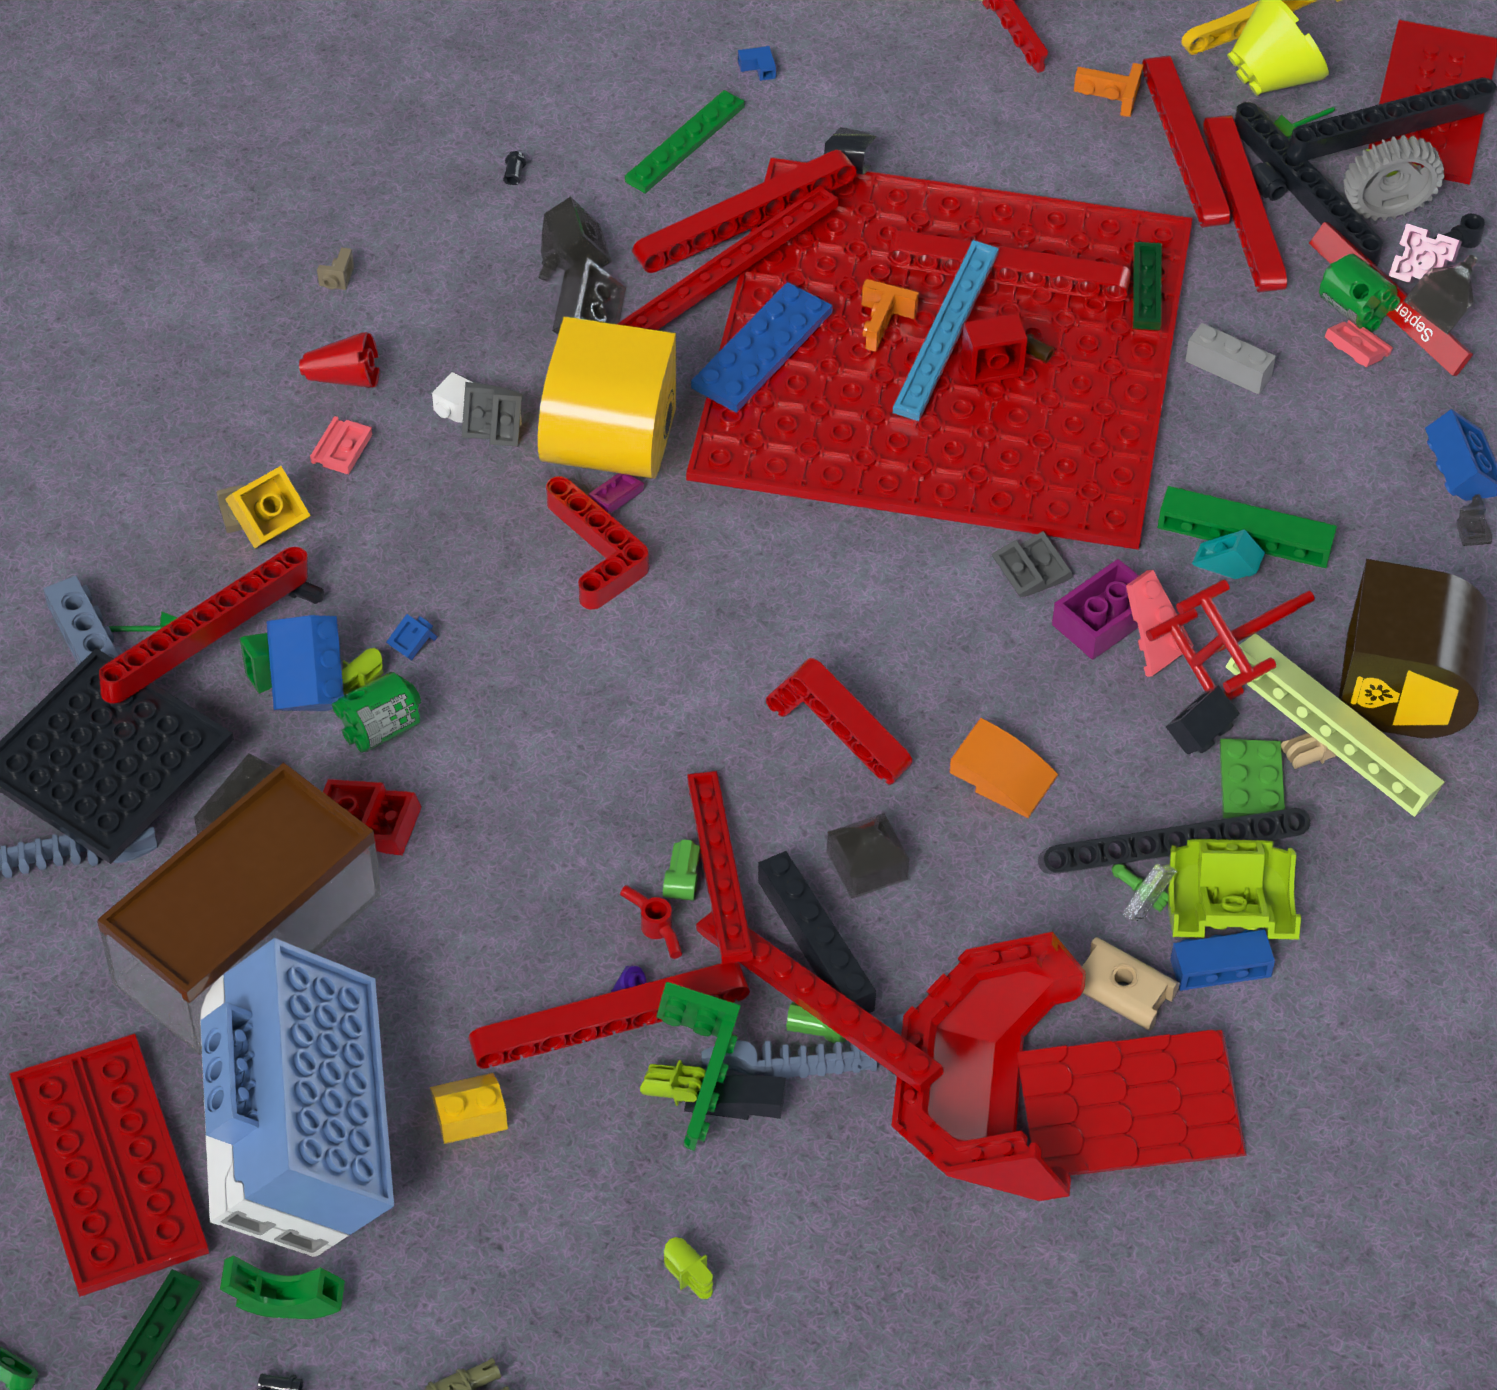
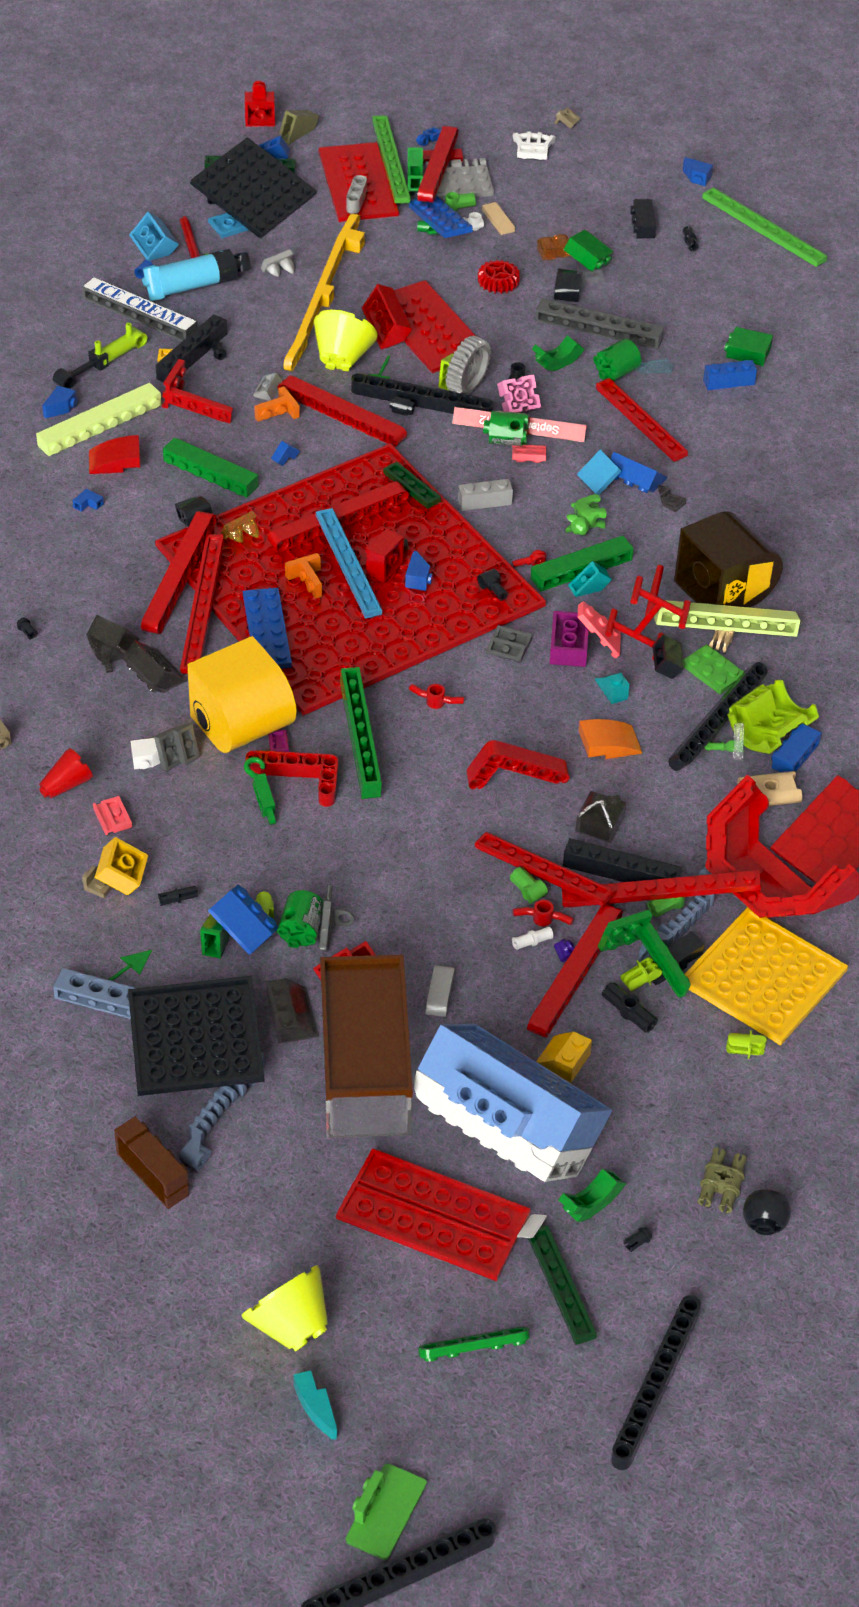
camera: 45 degrees left, 5 degrees down
(185, 1267) = (532, 1226): none -> white sticker
(203, 625) = (171, 938): red beam -> none
(408, 735) = (331, 918): none -> dark grey piece
(411, 636) = (266, 876): blue bracket -> none
(428, 915) = (440, 990): none -> light grey beam
(522, 533) = (261, 789): none -> green piece
(609, 938) = (532, 938): none -> white pin
(611, 1125) = (629, 1007): none -> black piece
(684, 141) = (97, 561): green plate -> none
(707, 544) = (360, 733): none -> green brick
(821, 1206) = (764, 975): none -> yellow plate
(852, 28) = (115, 455): none -> red slope
(860, 565) = (436, 696): none -> red piece
(888, 202) = (245, 523): none -> clear yellow tile
(940, 111) = (210, 467): none -> green brick
(1014, 398) = (418, 573): none -> blue slope
(1050, 145) = (283, 452): none -> blue piece
(1090, 710) = (614, 687): none -> teal slope
(1092, 471) = (491, 580): none -> black pin
(1124, 57) = (268, 387): none -> light grey slope
(1198, 481) = (535, 558): none -> red plate
(1245, 201) = (415, 427): red beam -> none
(1329, 470) = (586, 515): none -> bright green animal
(1384, 55) = (386, 316): none -> red slope
(1391, 119) = (429, 342): black beam -> none
(1412, 426) = (599, 472): none -> dark azure tile
(1444, 294) = (550, 403): clear smoke piece -> none

